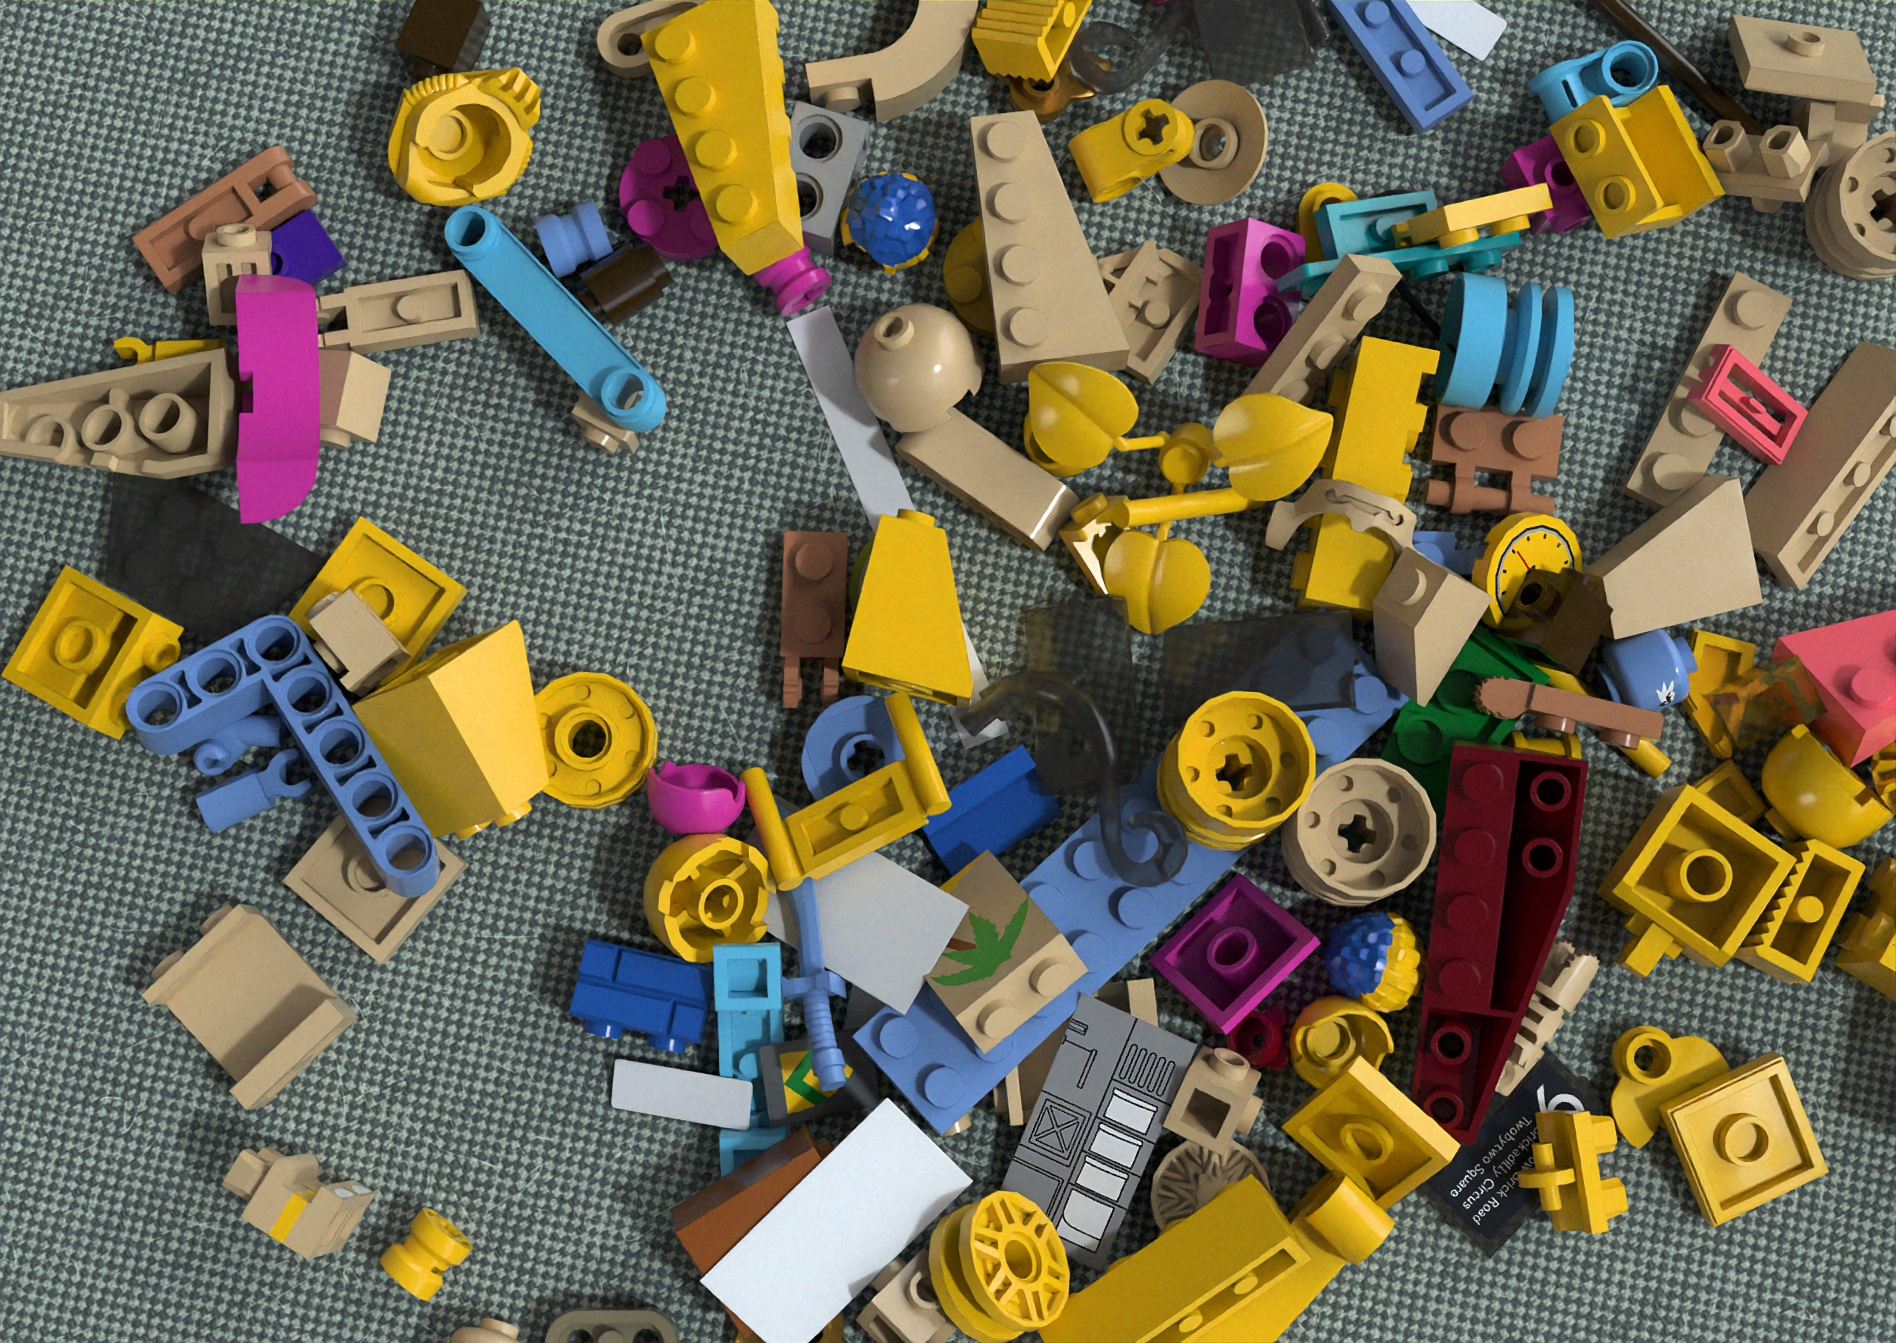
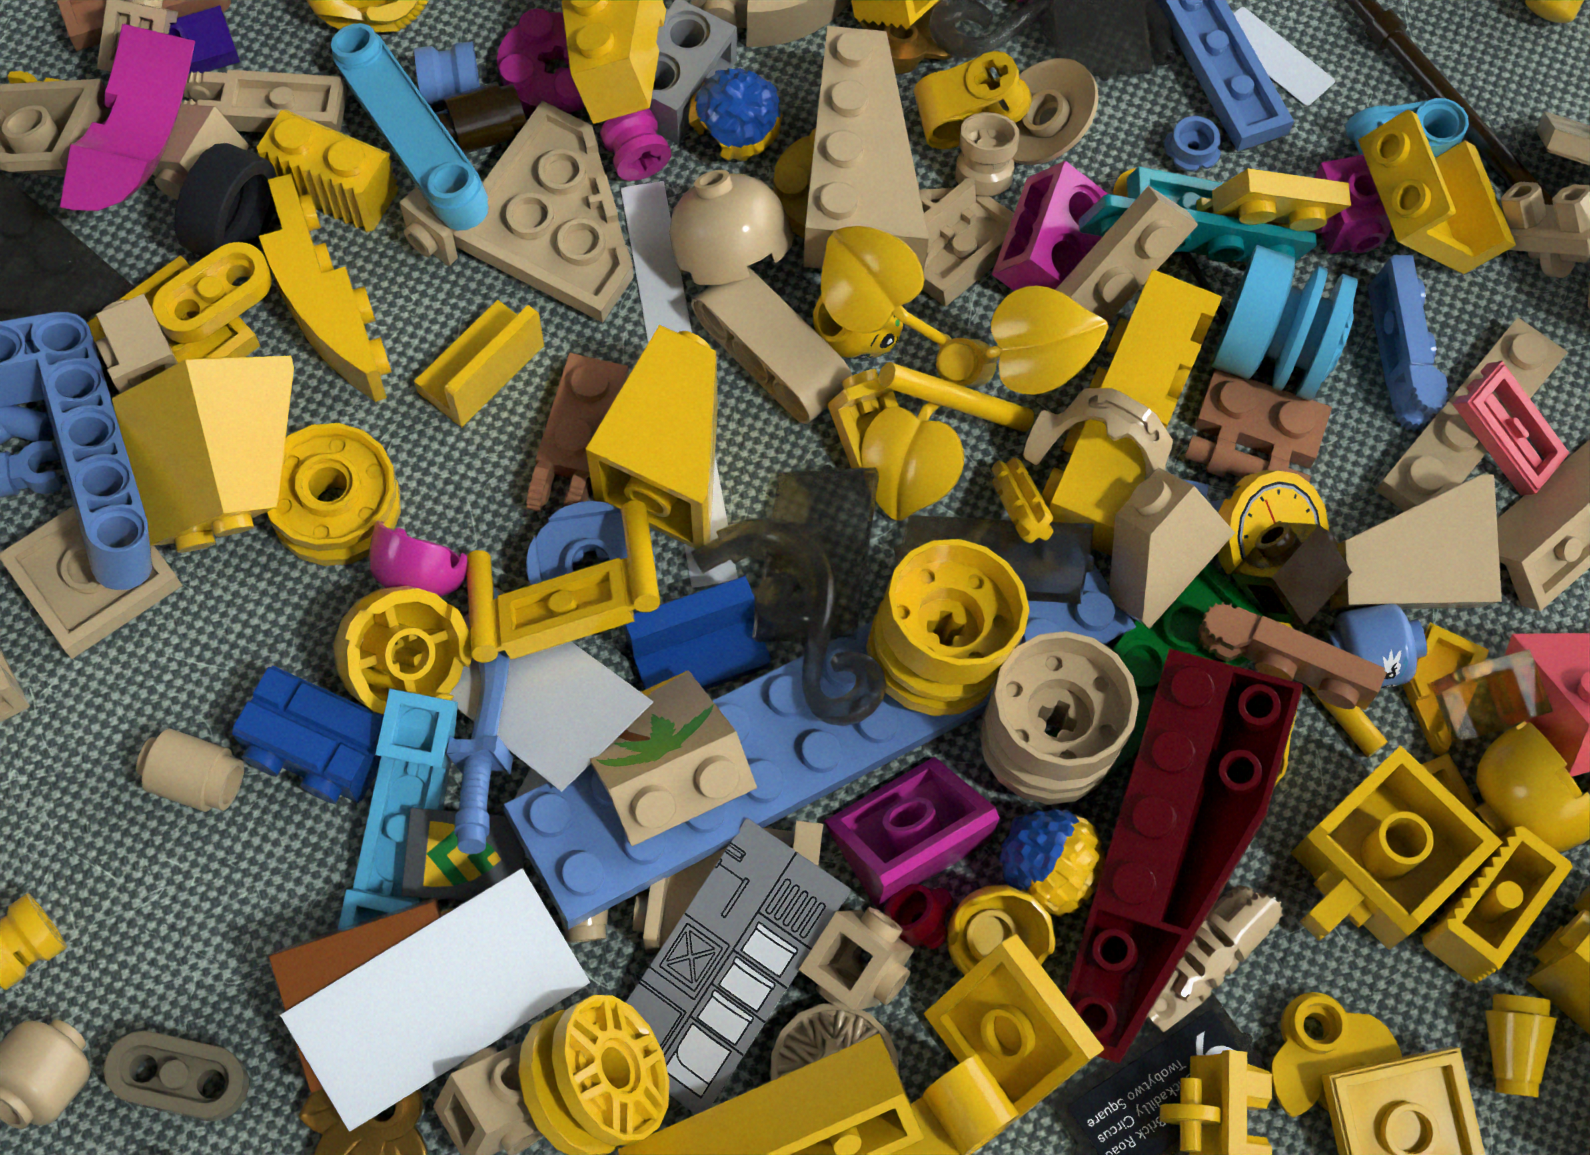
camera: 10 degrees right, 15 degrees down
(393, 453) = (224, 200): none -> black tyre
(406, 555) = (209, 290): none -> yellow plate
(482, 382) = (336, 169): none -> yellow brick
(525, 538) = (323, 297): none -> yellow slope
(536, 1054) = (190, 771): none -> tan brick
(681, 1094) = (323, 844): white sticker -> none
(695, 558) = (481, 361): none -> yellow panel
(730, 376) = (554, 216): none -> tan plate
(1161, 207) = (991, 156): none -> tan wheel
(1274, 596) = (1022, 500): none -> yellow axle
(1376, 126) = (1198, 133): none -> medium blue plate
(1628, 329) = (1406, 344): none -> medium blue hinge
(1835, 1032) = (1519, 1042): none -> yellow cone

